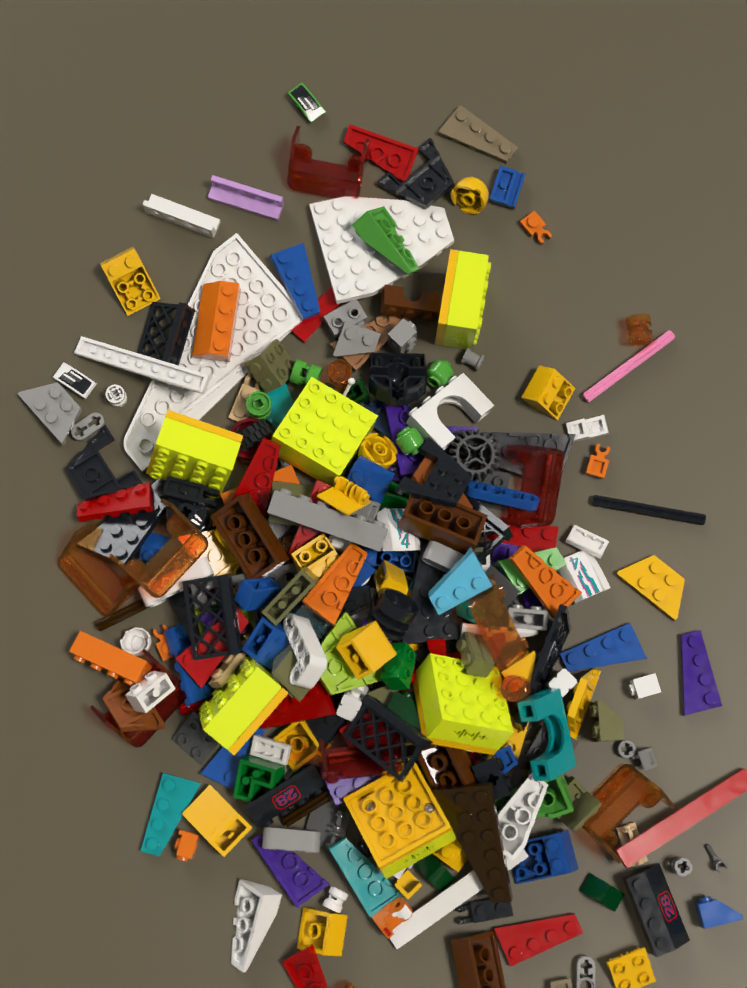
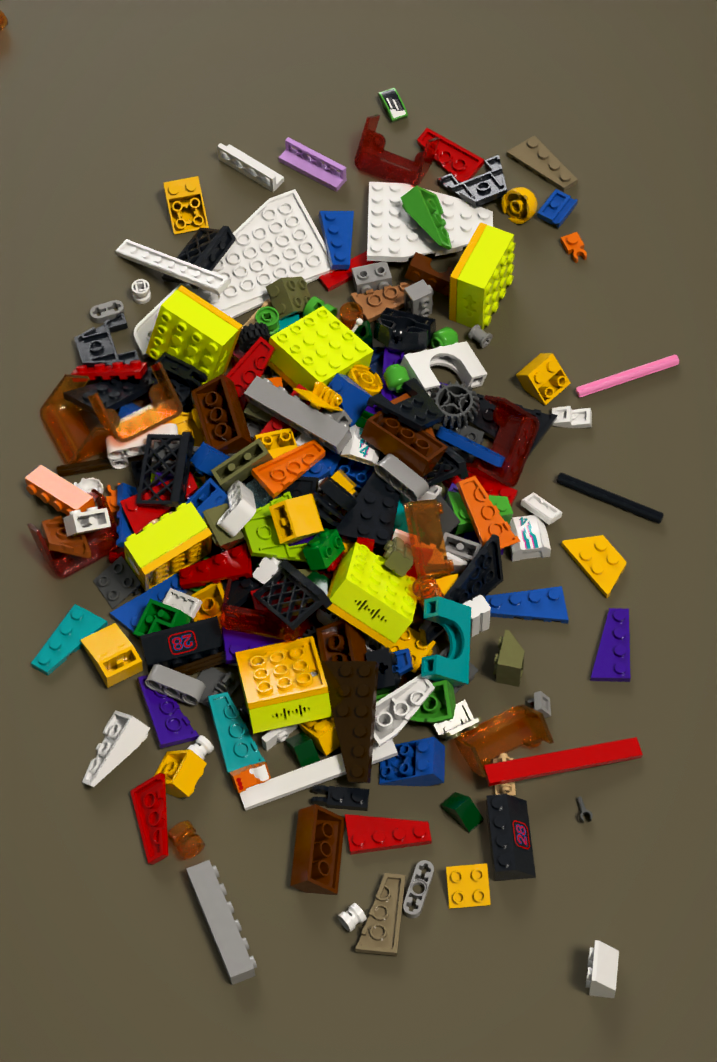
camera: 20 degrees right, 20 degrees down
(53, 408) = (80, 288): light grey wing -> none
(74, 380) = (109, 272): slope -> none
(186, 845) = (76, 667): orange brick -> none
(217, 321) = (254, 250): orange slope -> none
(356, 340) = (375, 292): light grey wing -> none
(407, 884) = (273, 755): yellow panel -> none
(460, 583) = (403, 487): medium azure wedge -> none
(579, 705) = (487, 636): yellow wing -> none
(597, 464) = (572, 447): orange plate -> none
(630, 753) = (519, 690): light grey bush -> none
(639, 329) = (645, 346): clear orange wheel -> none
(644, 686) = (558, 642): white brick -> none
(679, 860) = (543, 801): light grey bush -> none
(715, 913) = (569, 855): blue slope -> none

